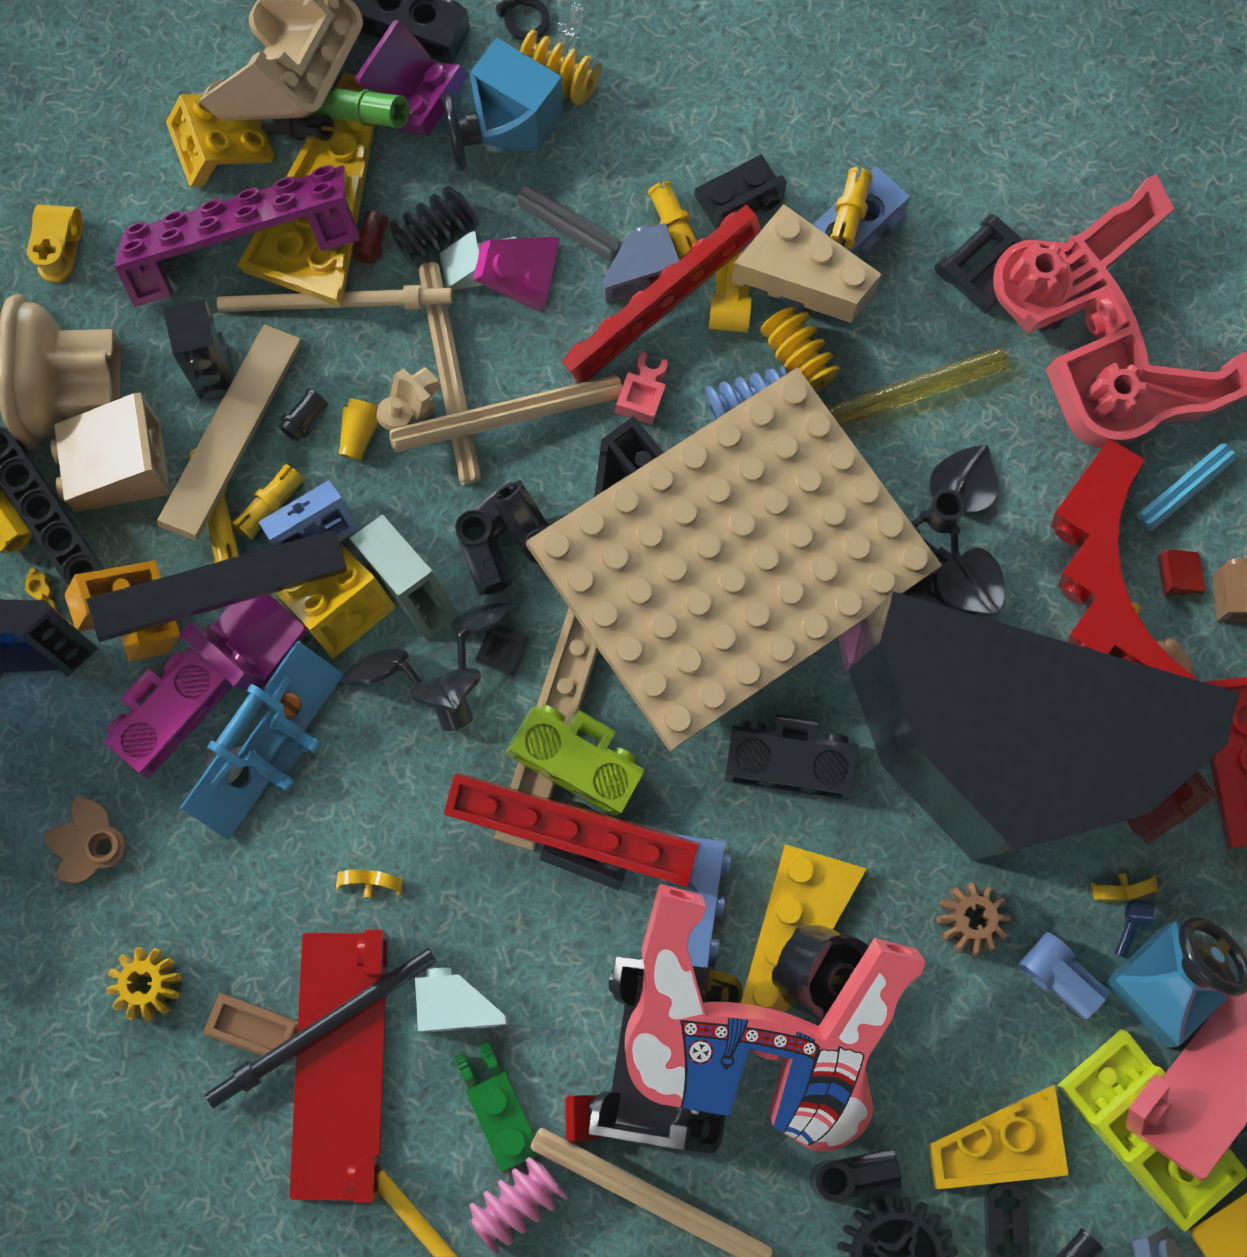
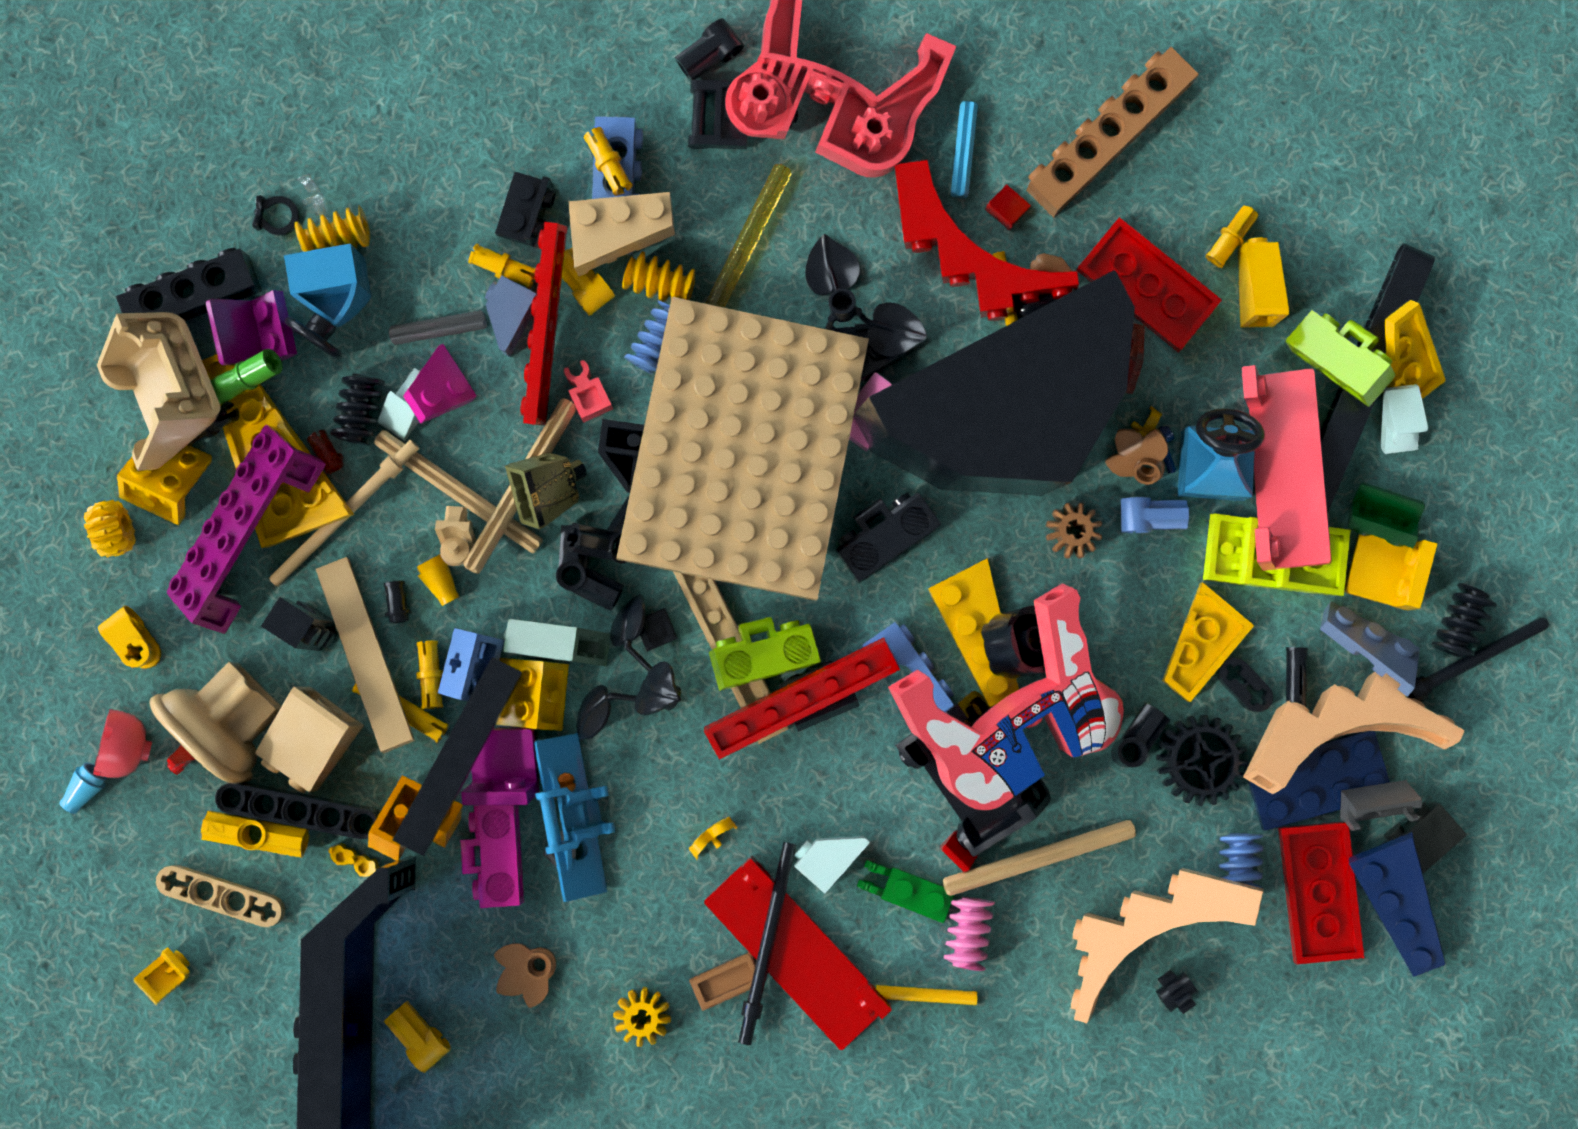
camera: 40 degrees left, 10 degrees up
(130, 134) = (109, 528): none -> yellow gear
(526, 431) = (544, 487): none -> olive torso
(1041, 203) = (714, 46): none -> black piece
(1105, 901) = (1139, 450): none -> medium nougat plate

